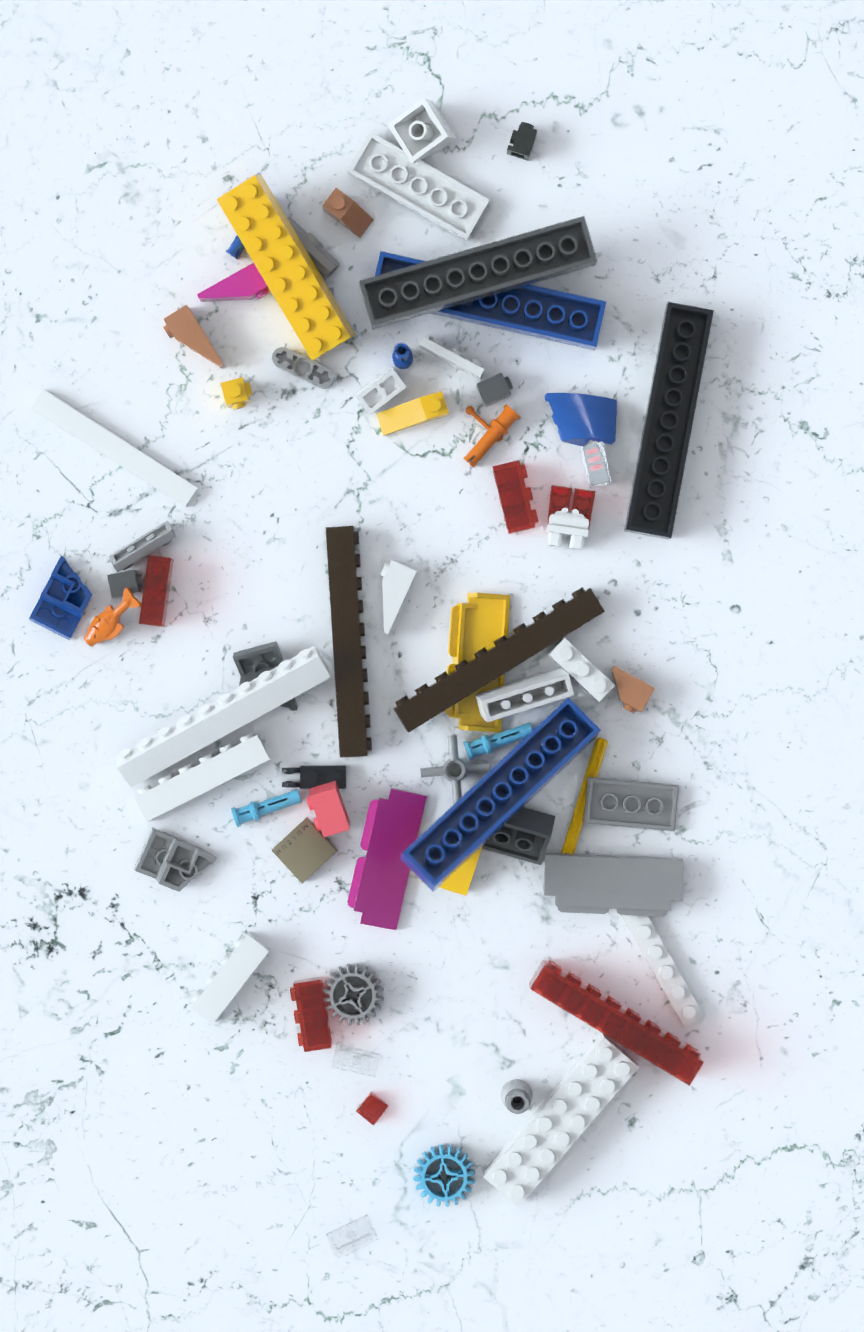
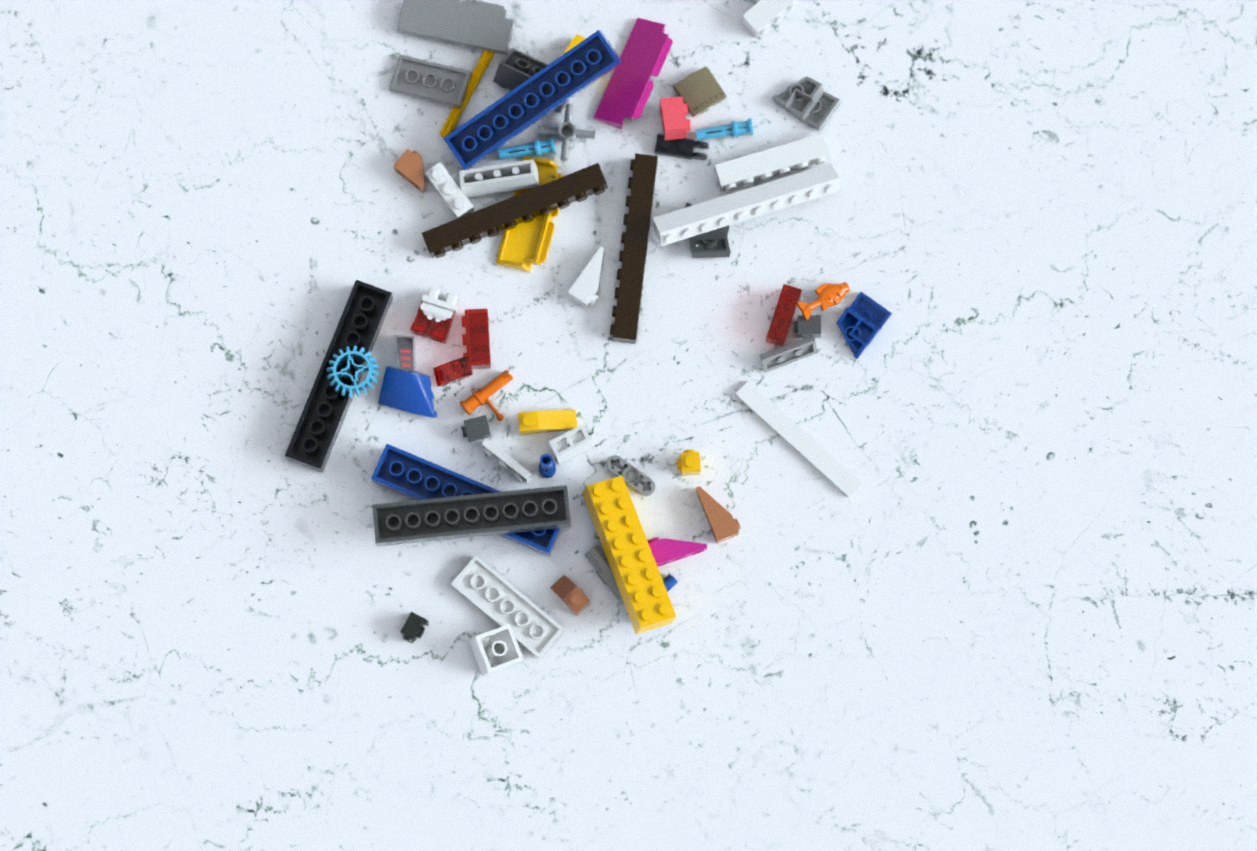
camera: 165 degrees left, 10 degrees down
(535, 451) = (453, 371): none -> clear red slope
(670, 414) = (349, 355): none -> medium azure gear

